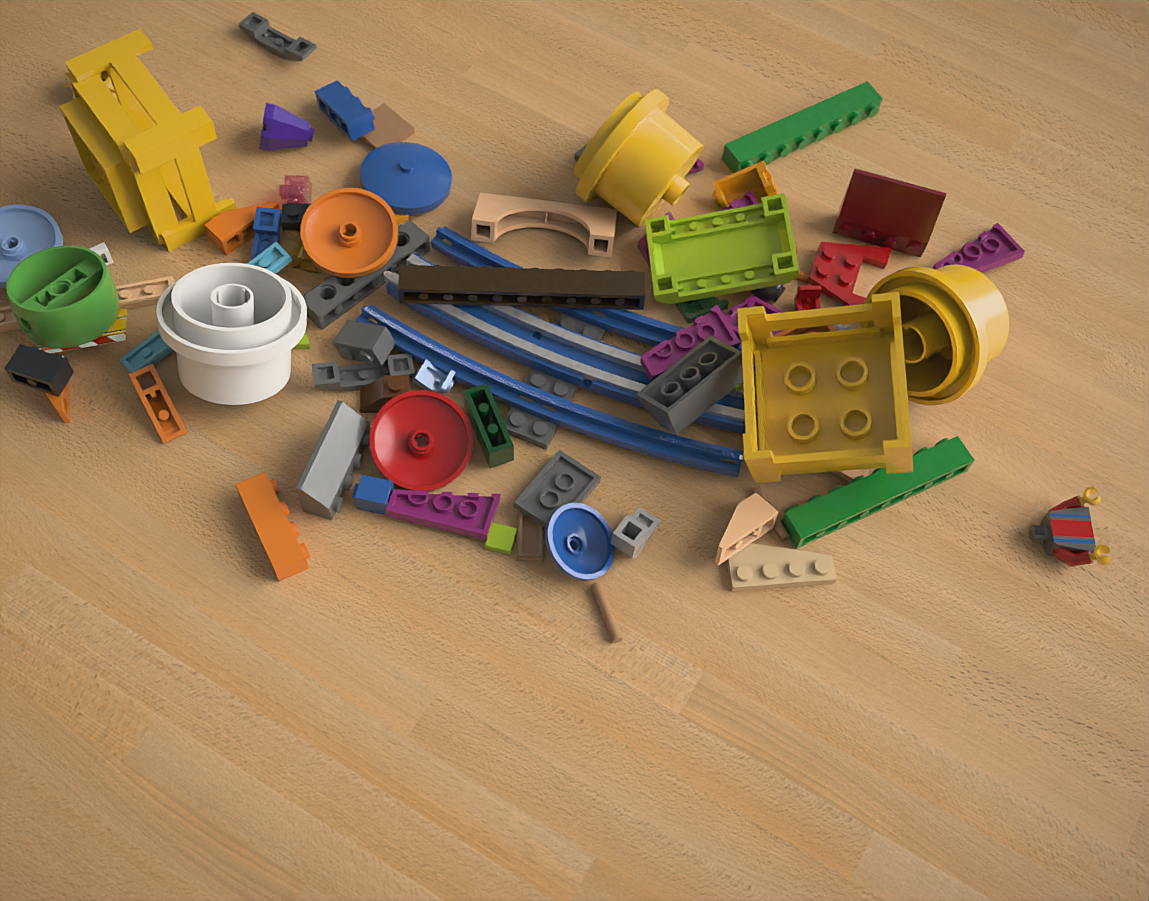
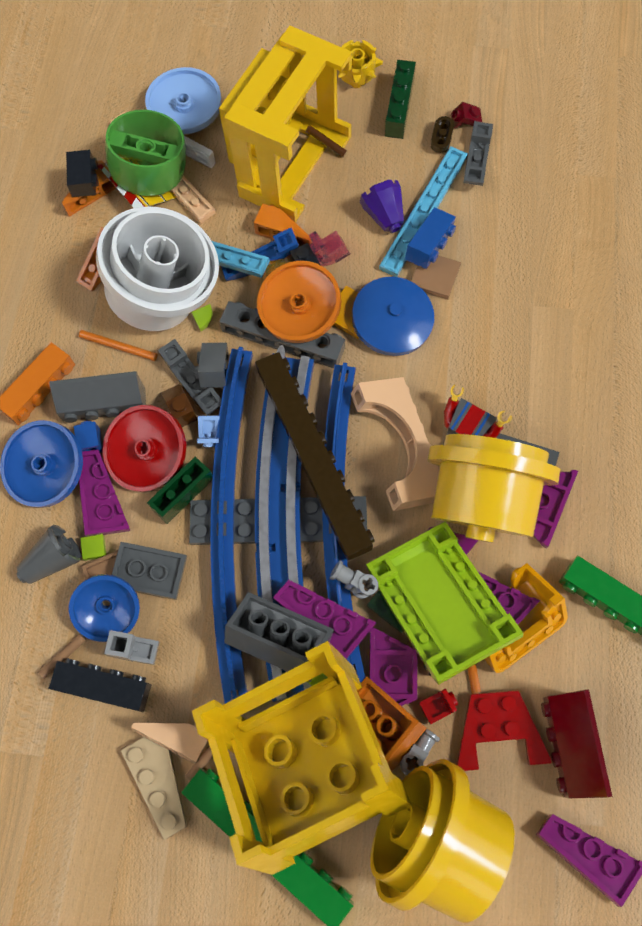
camera: 75 degrees right, 10 degrees up
(175, 72) = (400, 99): none -> dark green brick
(223, 28) = (466, 114): none -> dark red bracket
(231, 55) = (442, 136): none -> dark brown plate
(275, 430) = (118, 345): none -> orange bar
(305, 107) = (430, 198): none -> medium azure tile
(379, 548) = (41, 464): none -> blue dish
(492, 579) = (49, 555): none -> dark grey cone
(555, 166) = (468, 419): none -> torso
(658, 581) = (99, 685): none -> black brick
(667, 310) = (354, 579): none -> light grey connector

